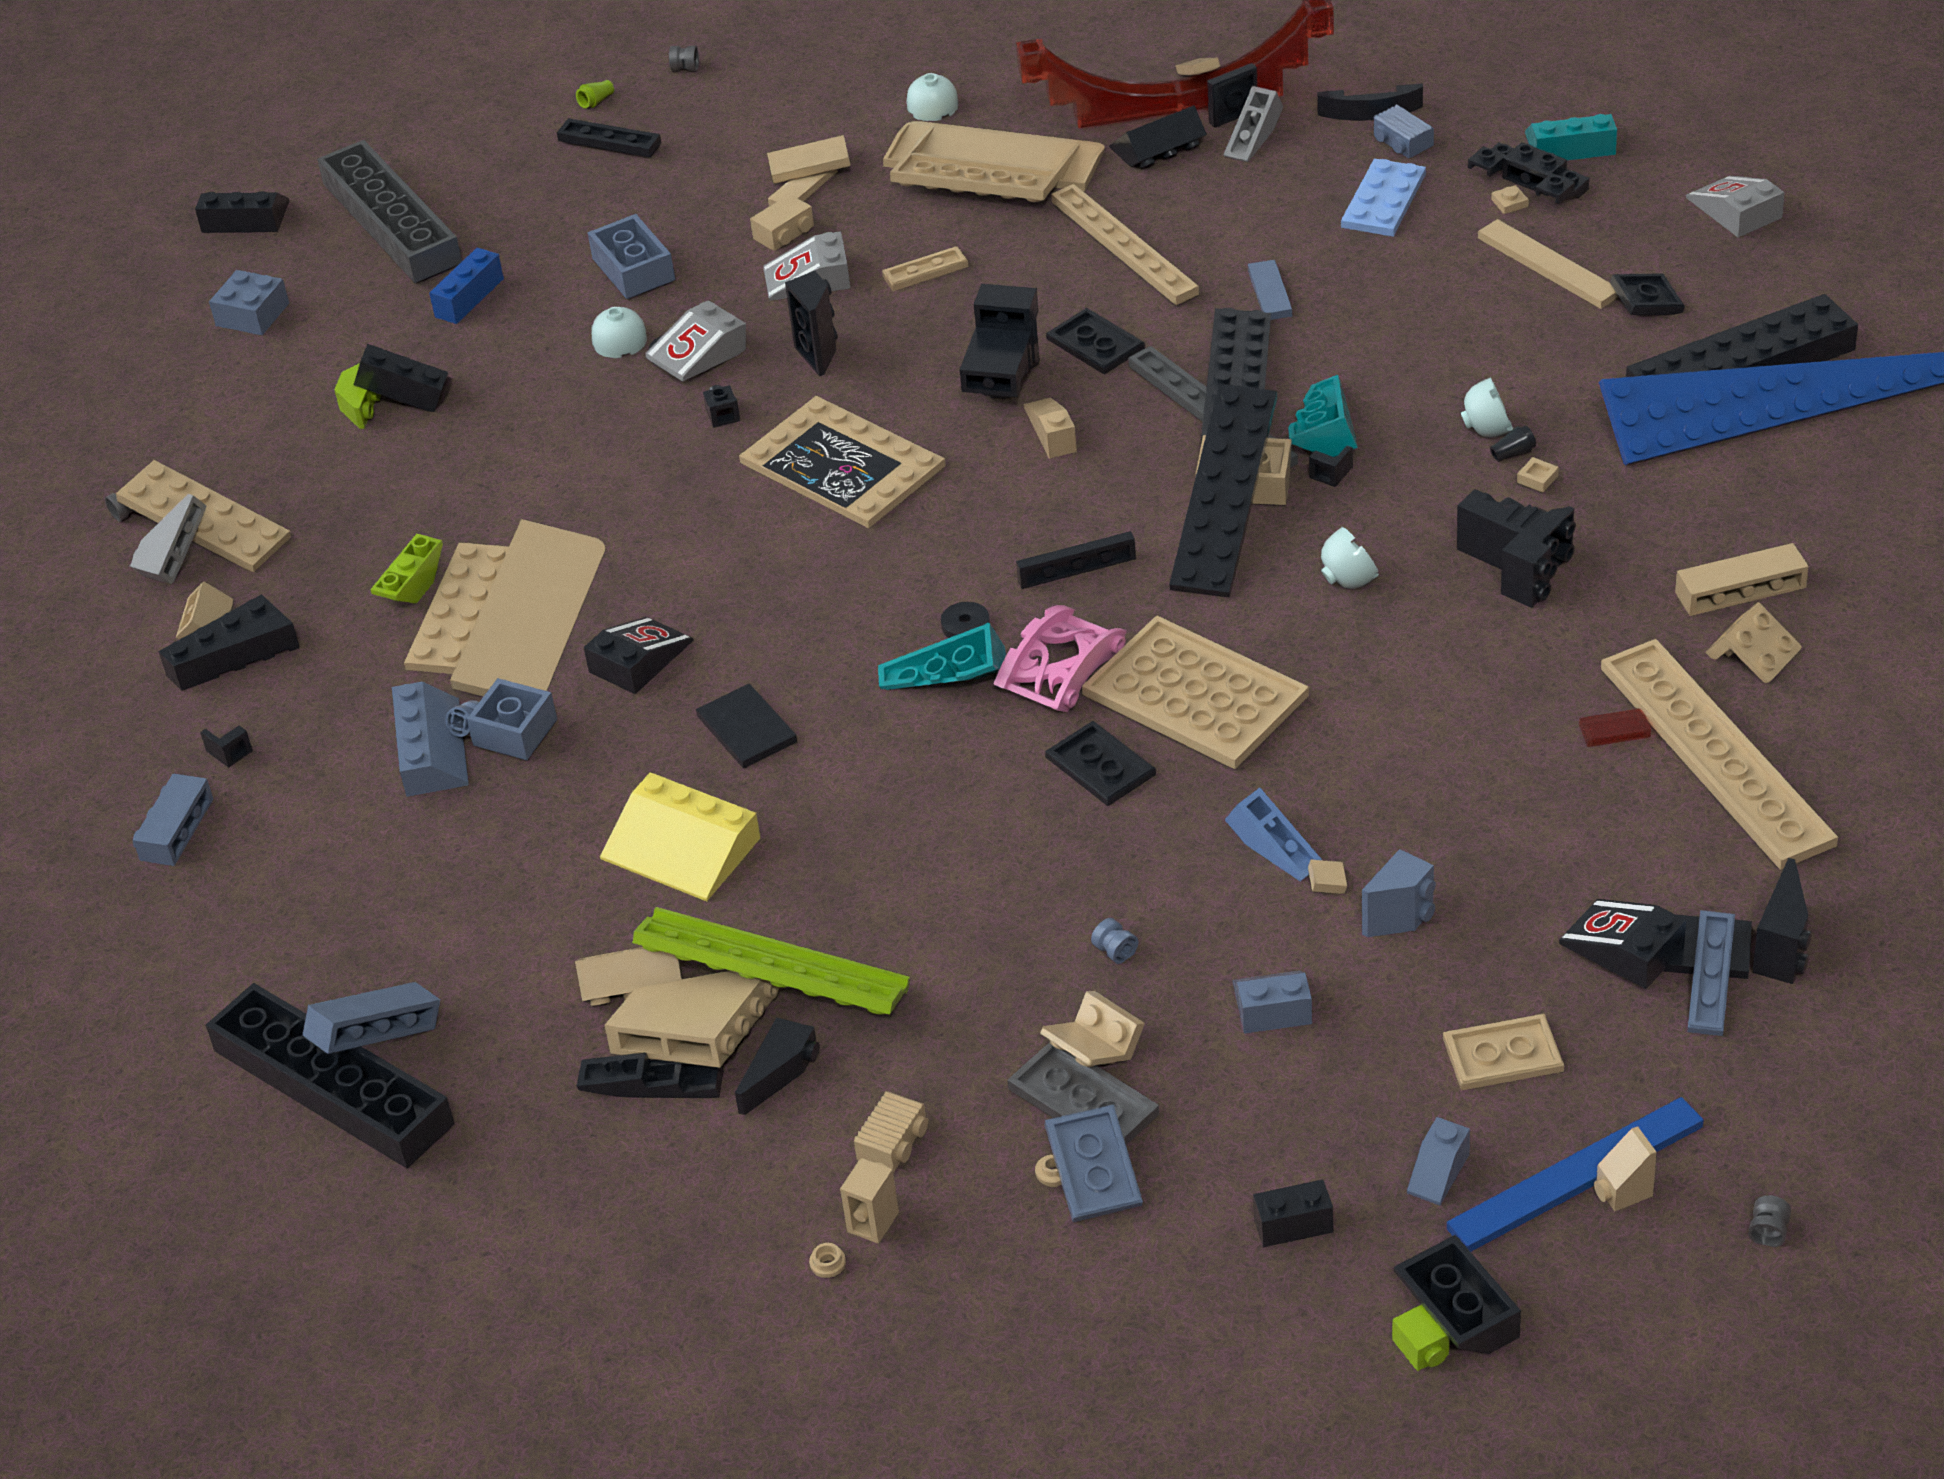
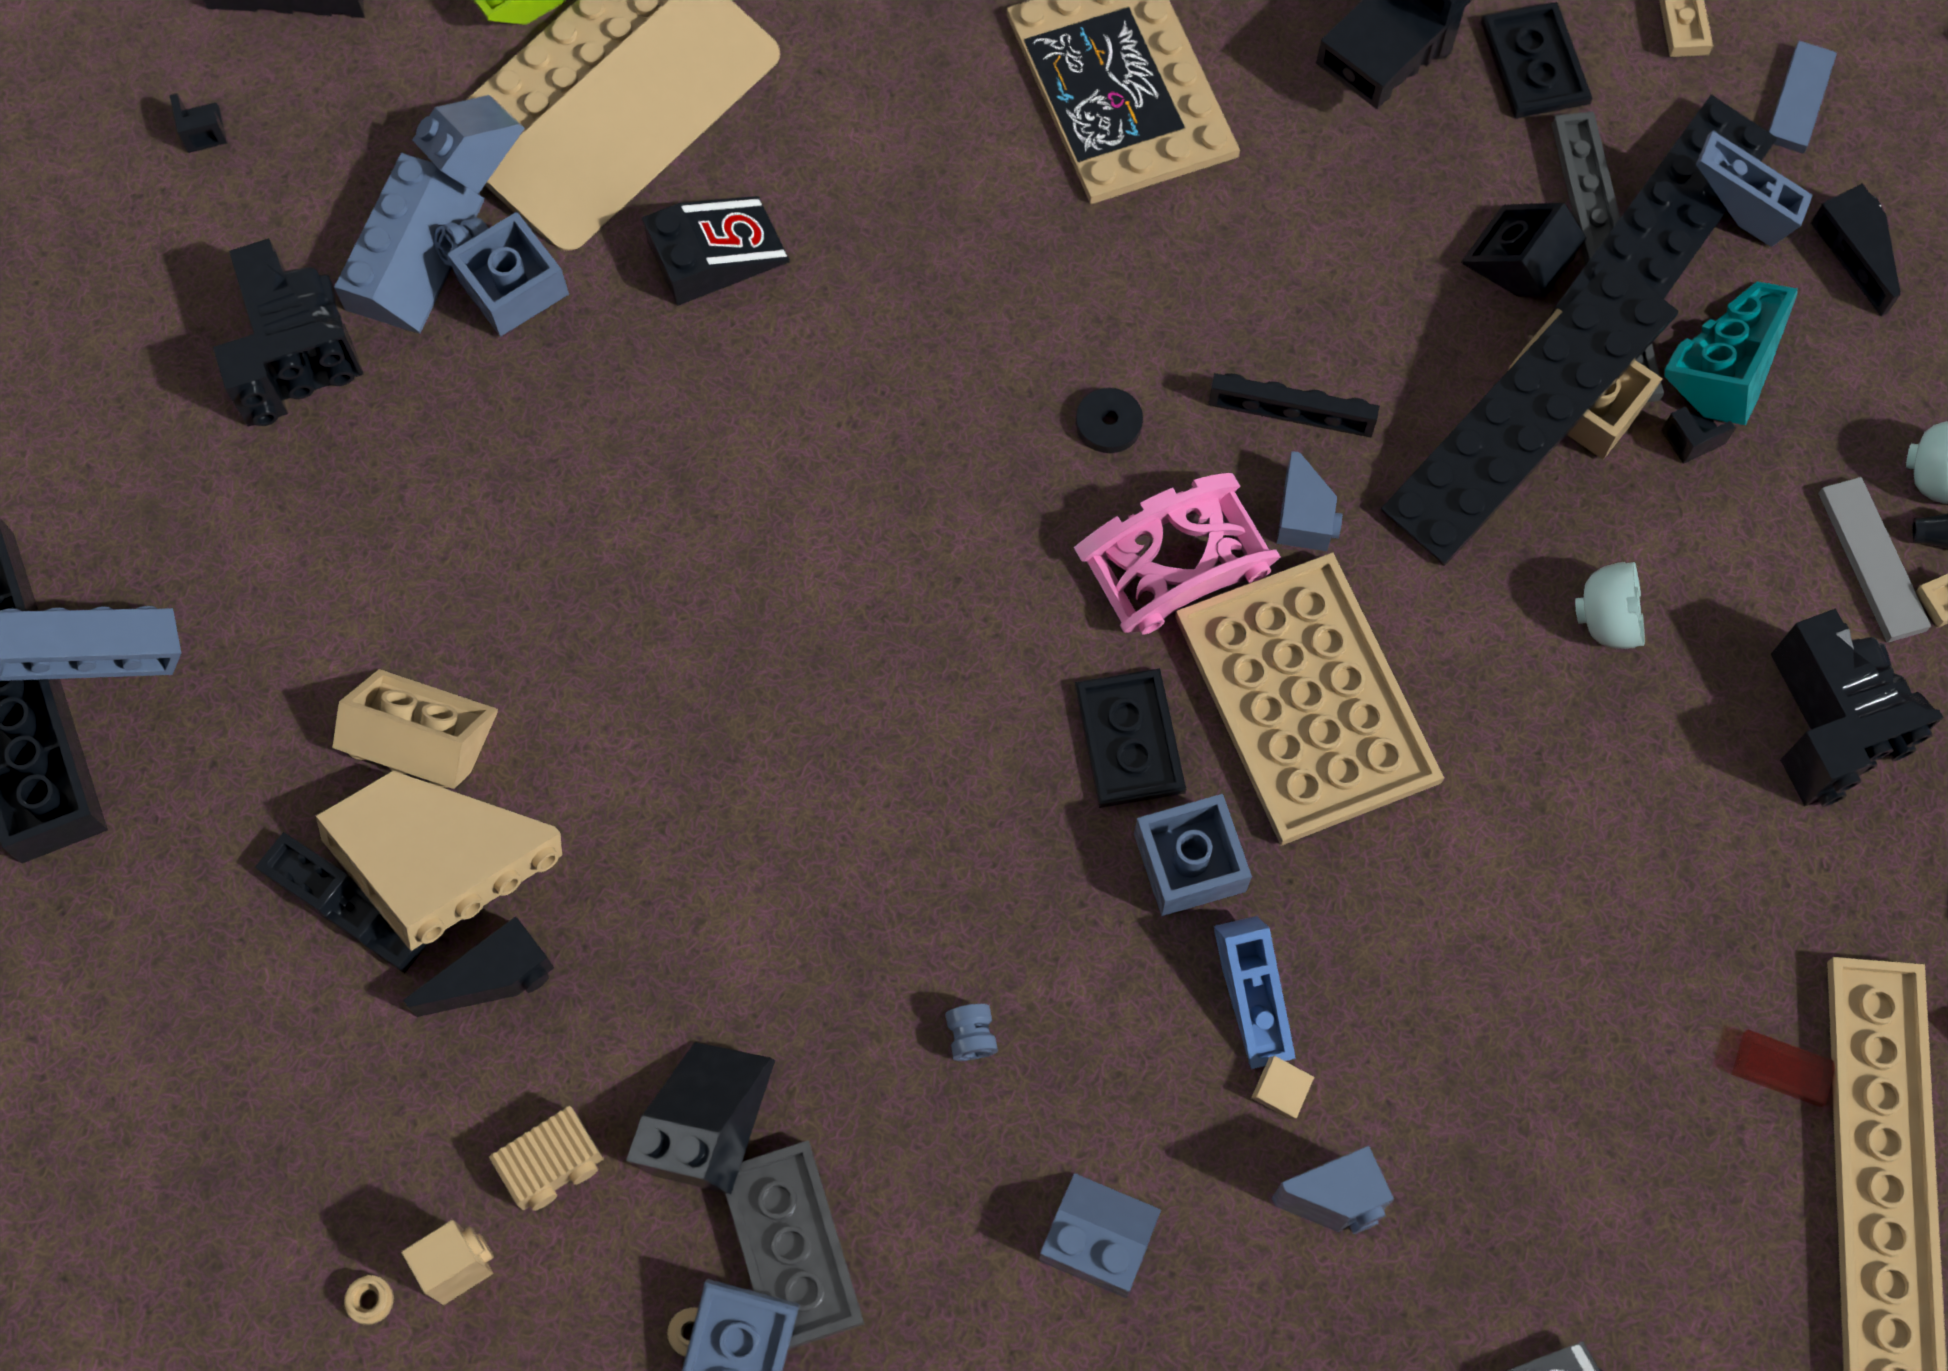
camera: 25 degrees right, 25 degrees up
(173, 819) = (77, 201): sand blue brick -> none
(382, 813) = (295, 340): none -> black brick
(434, 660) = (468, 139): none -> sand blue slope
(681, 836) = (586, 564): light yellow slope -> none
(746, 725) = (766, 432): black tile -> none
(772, 961) = (554, 835): lime plate -> none
(951, 660) = (1042, 483): teal wedge -> none
(979, 1061) = (703, 1118): none -> black slope
(1052, 427) = (1397, 169): tan slope -> none
(1099, 1034) = (851, 1170): tan bracket -> none
(1123, 602) = (1307, 508): none -> sand blue slope
(1160, 425) = (1526, 247): none -> black slope
(1184, 789) = (1192, 854): none -> sand blue brick
(1281, 337) = (1752, 191): none -> sand blue slope
(1359, 337) = (1861, 241): none -> black slope
(1479, 475) = (1874, 560): none -> light grey tile

